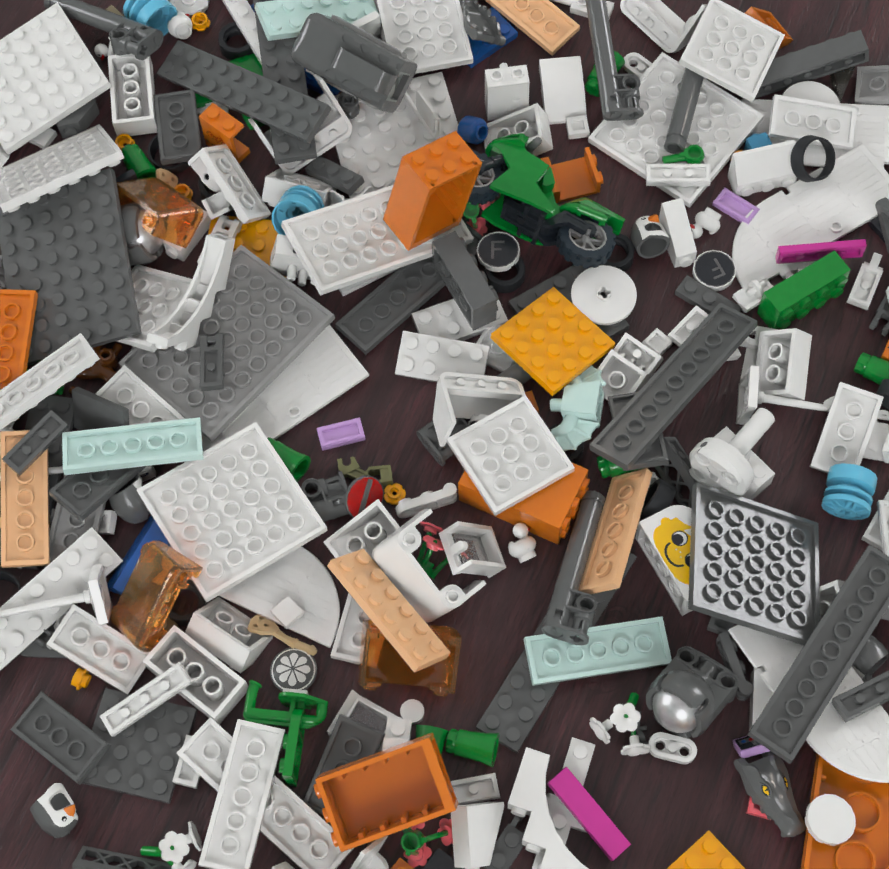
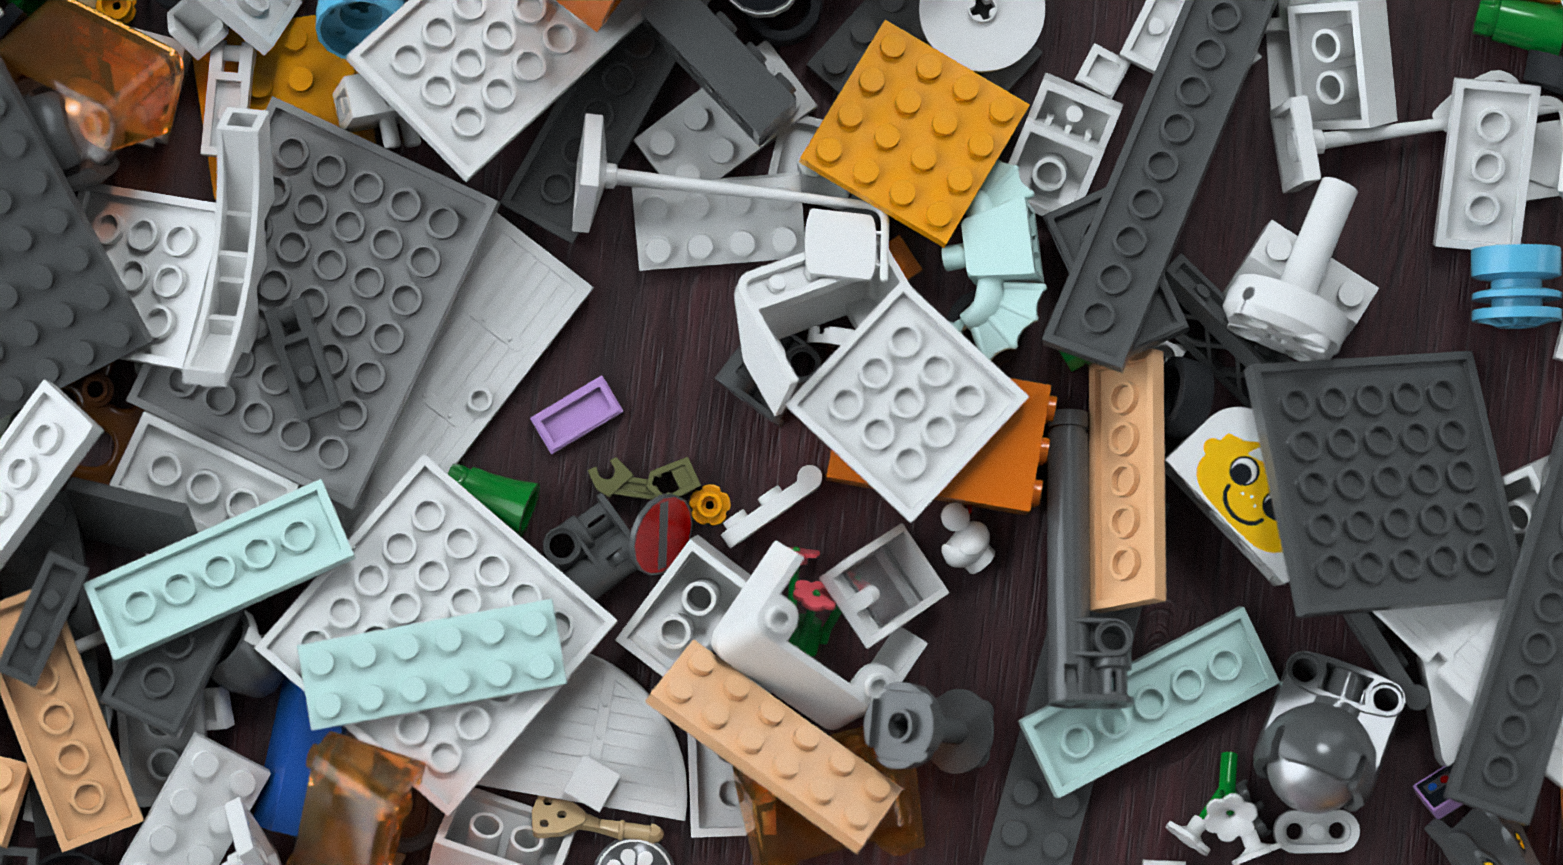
camera: 15 degrees left, 20 degrees up
(223, 521) = (432, 664): none -> light aqua plate
(464, 618) = (913, 726): none -> dark grey piece
(493, 375) = (834, 242): none -> white piece

